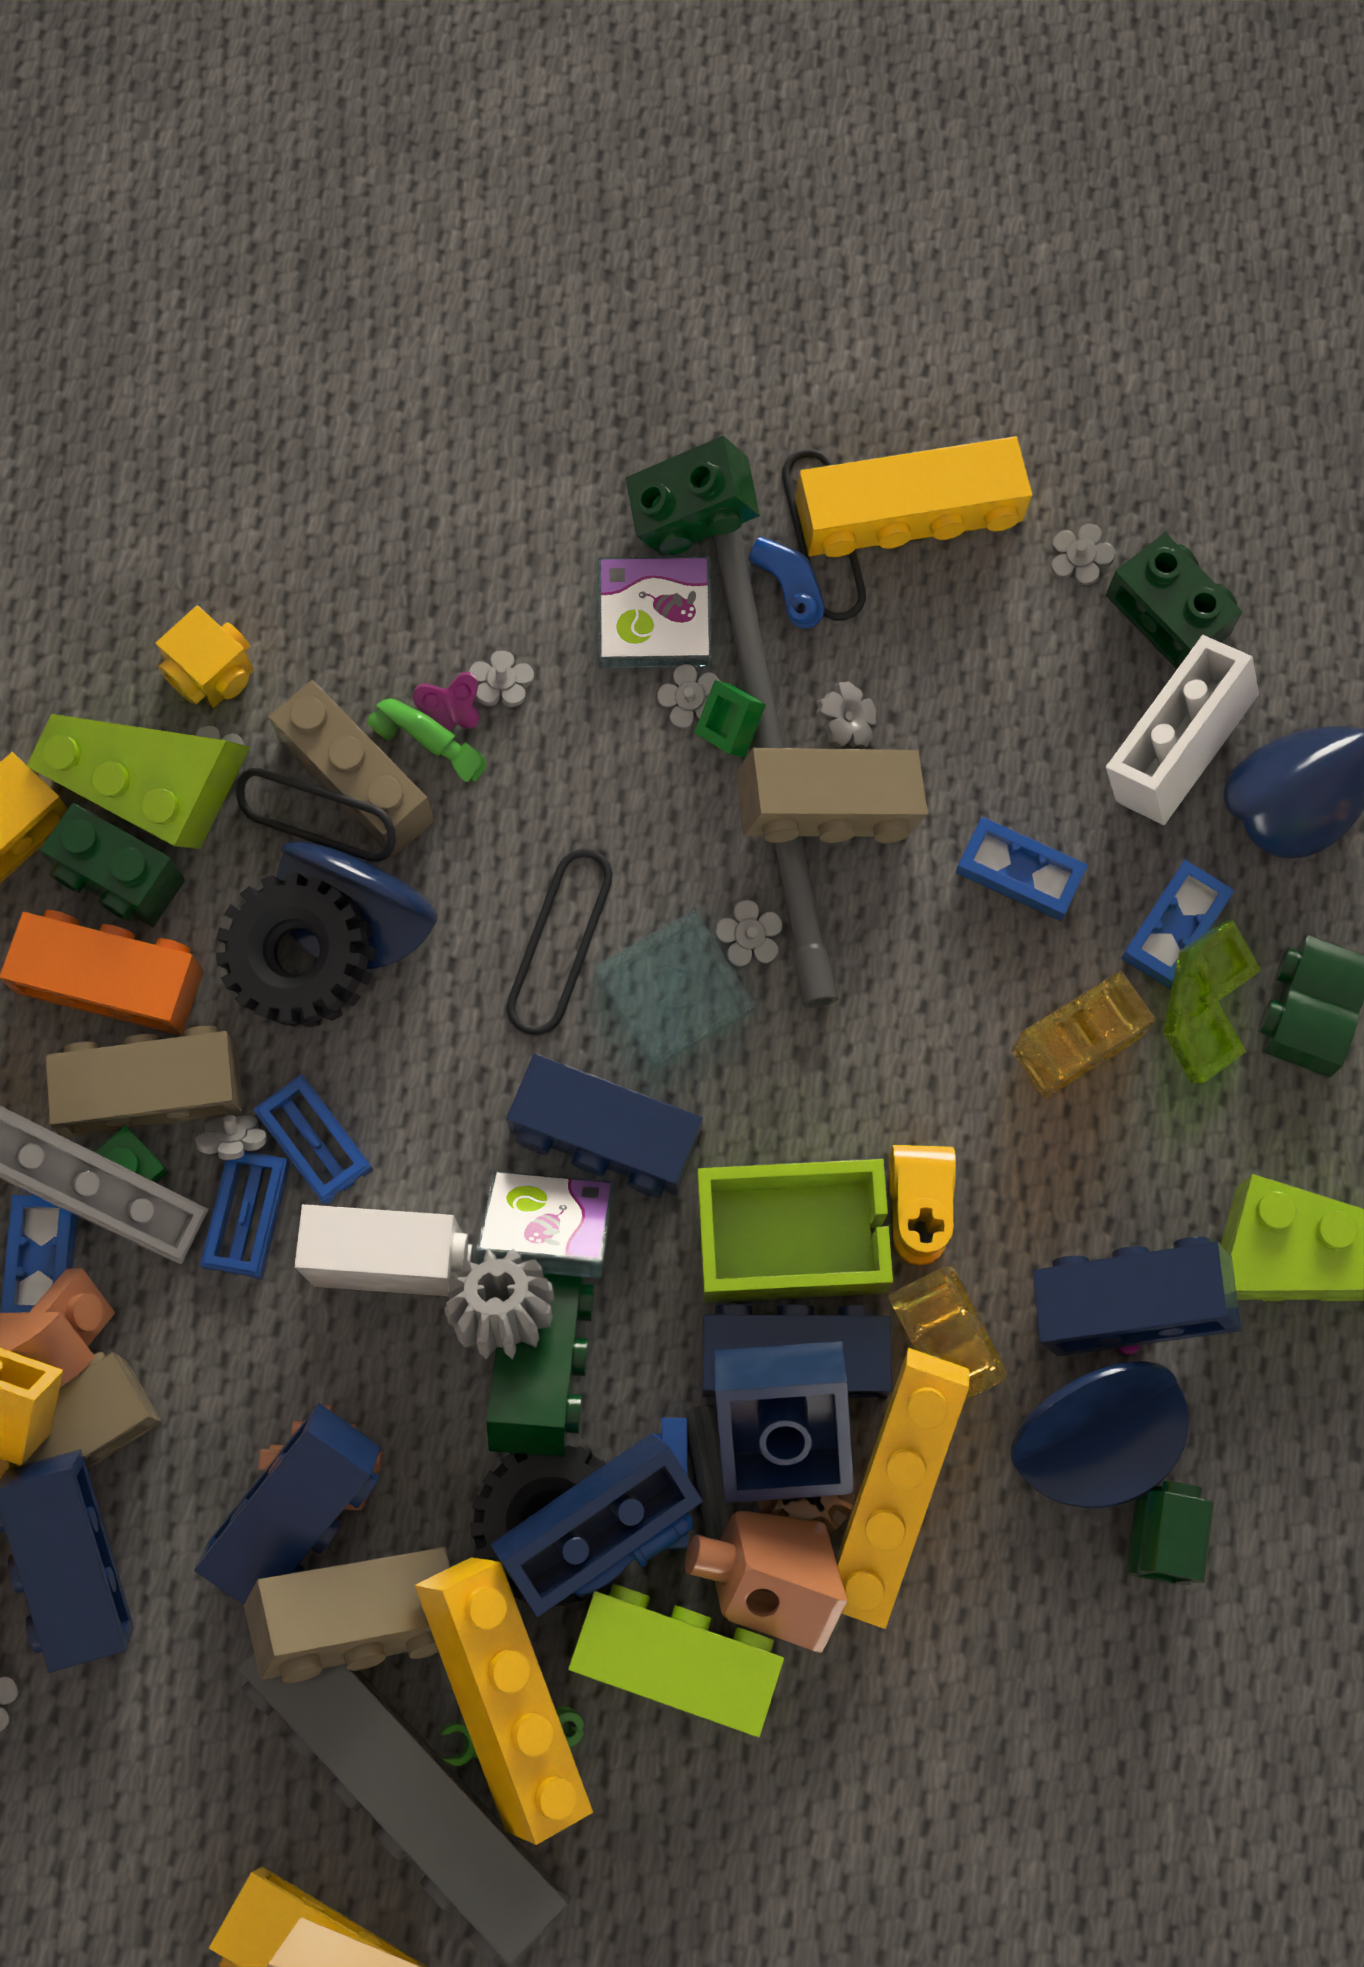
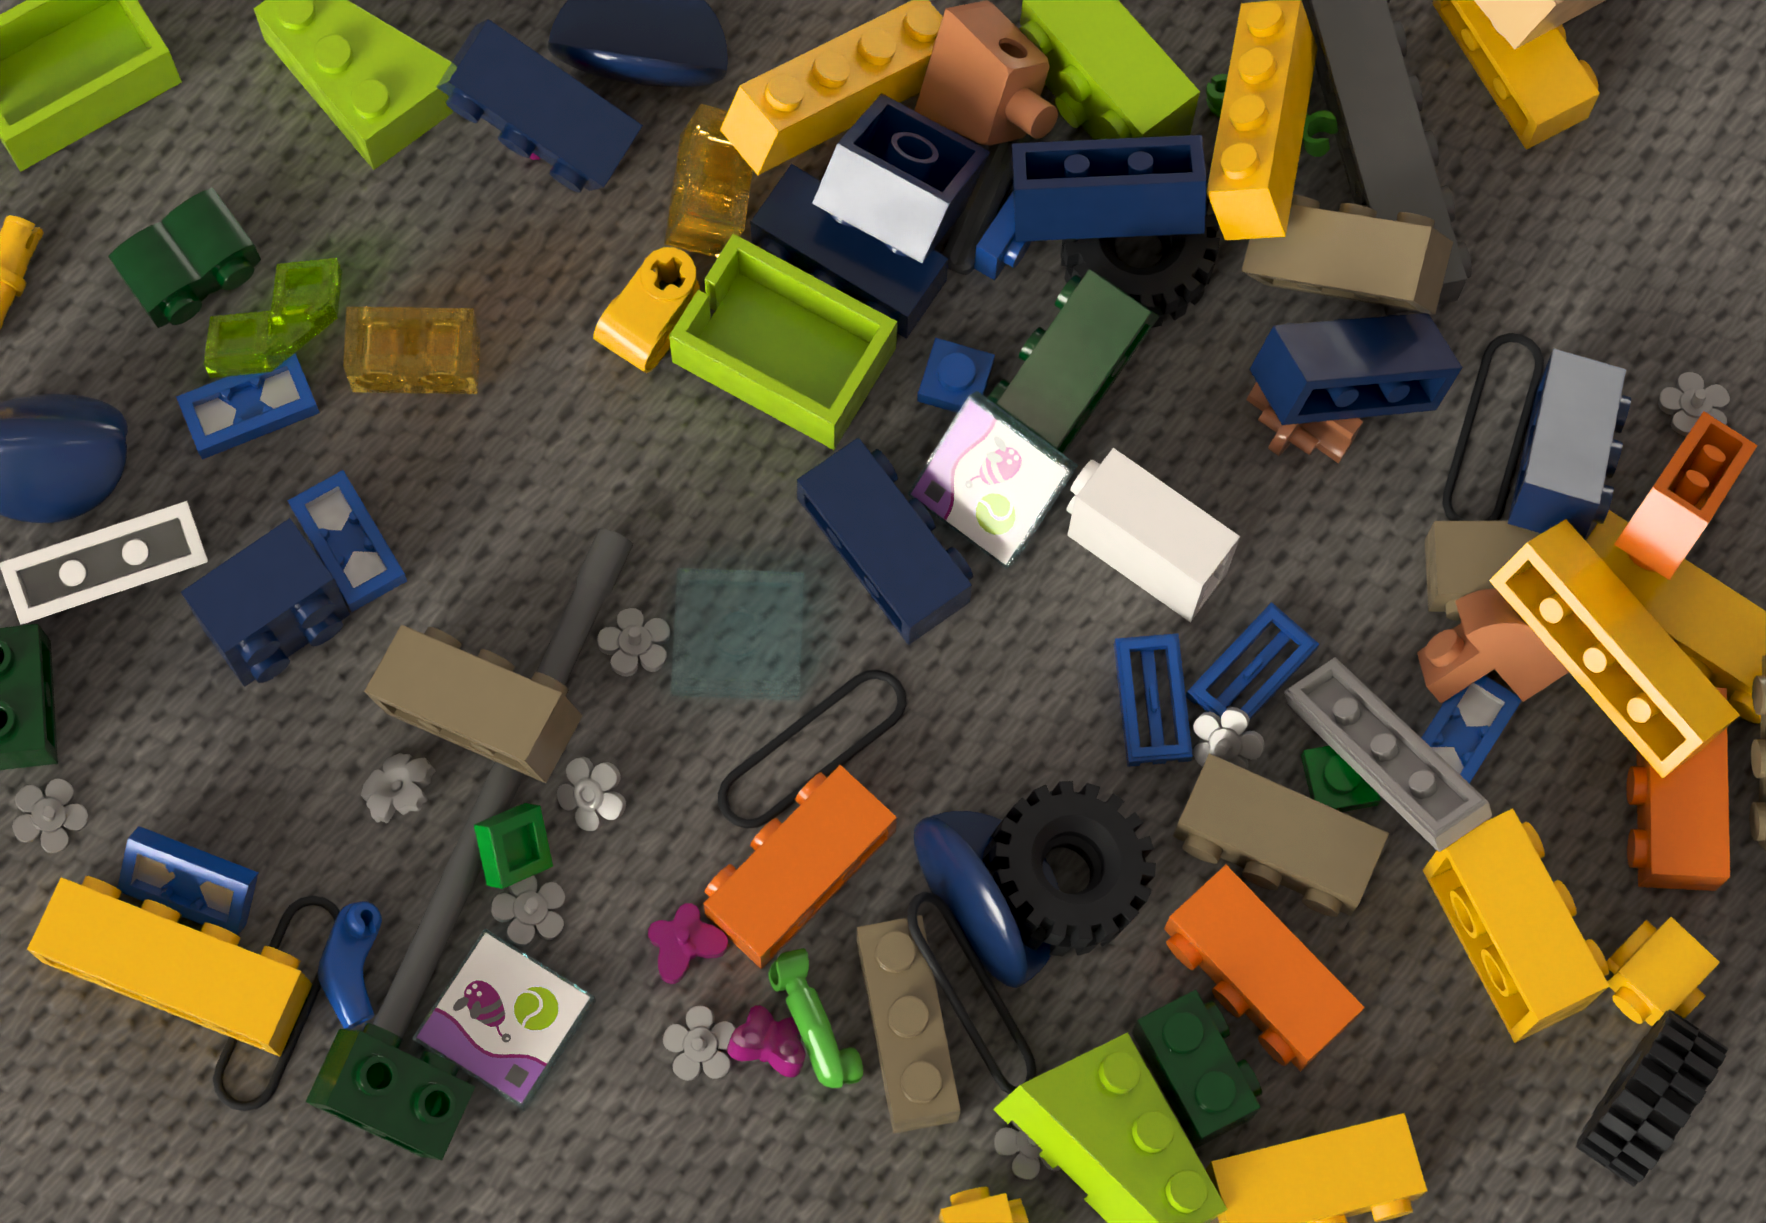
camera: 150 degrees left, 0 degrees up
(126, 1568) = (1469, 419): none -> black piece
(499, 1303) = (1070, 423): light grey gear -> none
(508, 836) = (798, 864): none -> orange brick
(562, 741) = (684, 940): none -> magenta piece
(638, 1309) = (954, 374): none -> blue plate
(701, 798) = (591, 793): none -> light grey plant
(962, 558) = (187, 880): none -> blue piece
(1037, 761) = (267, 604): none -> dark blue brick

